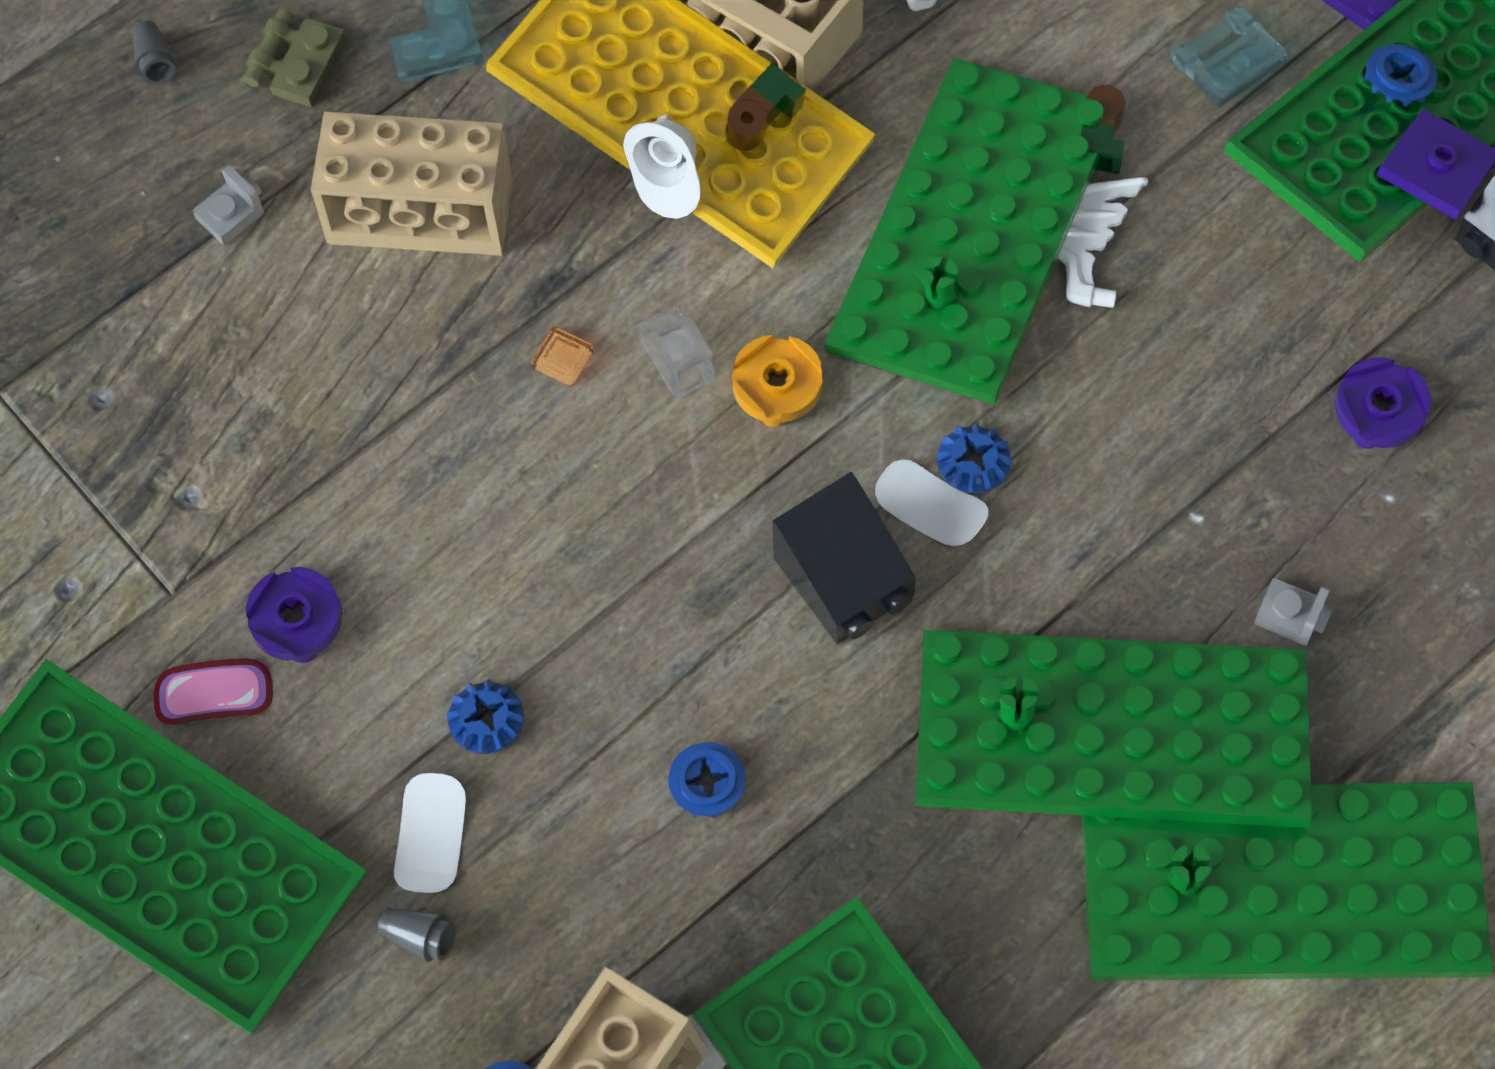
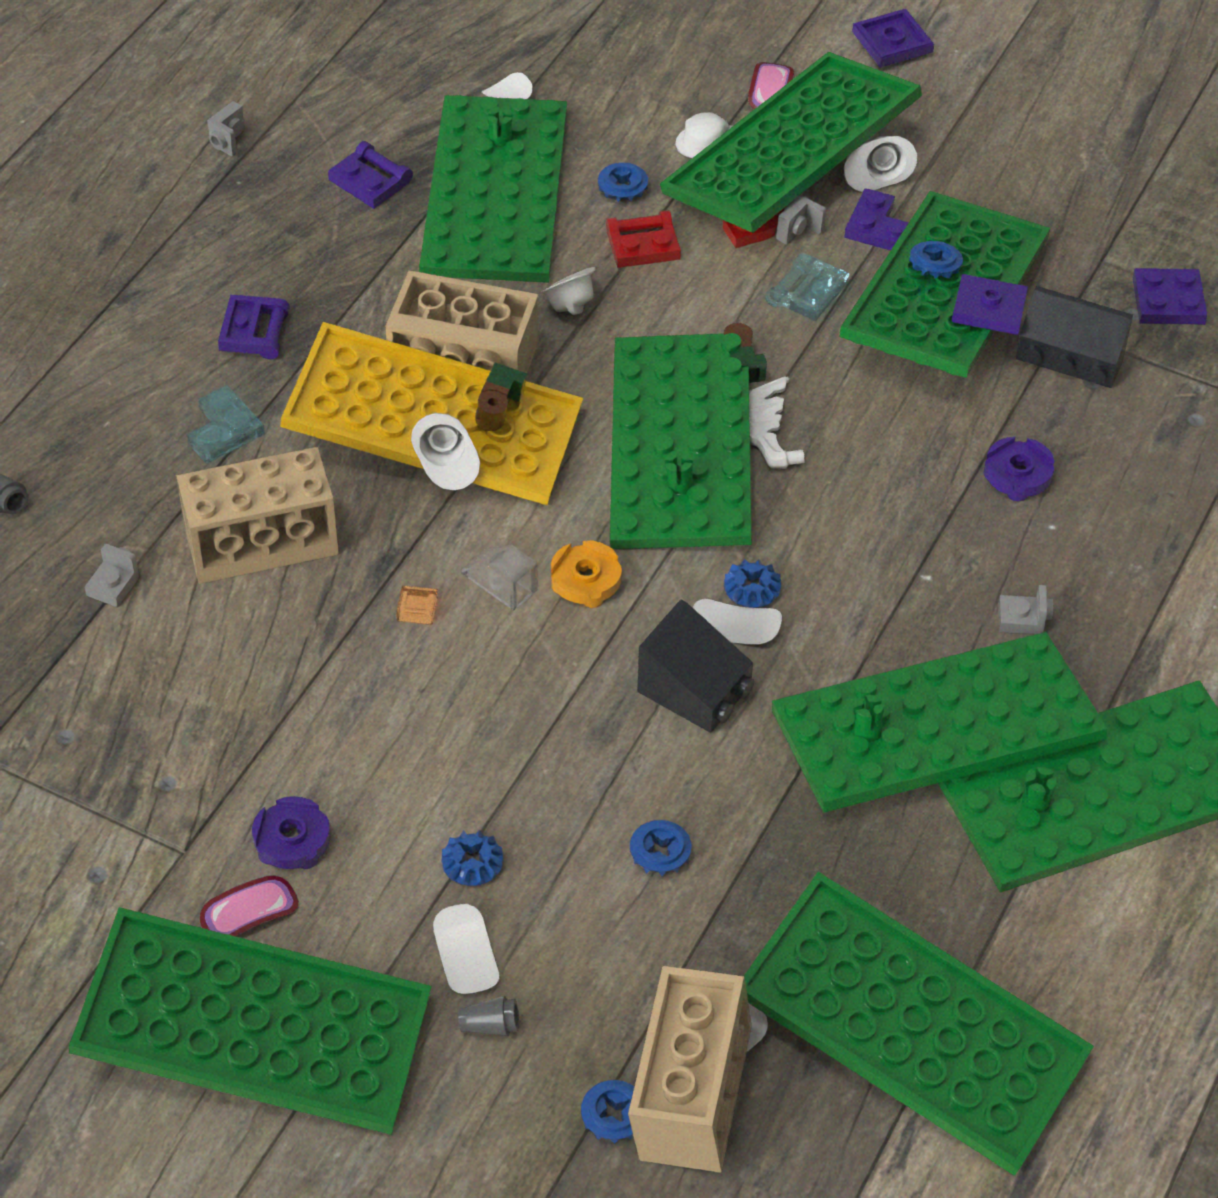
camera: 25 degrees left, 15 degrees down
(306, 63) = (128, 470): olive plate -> none

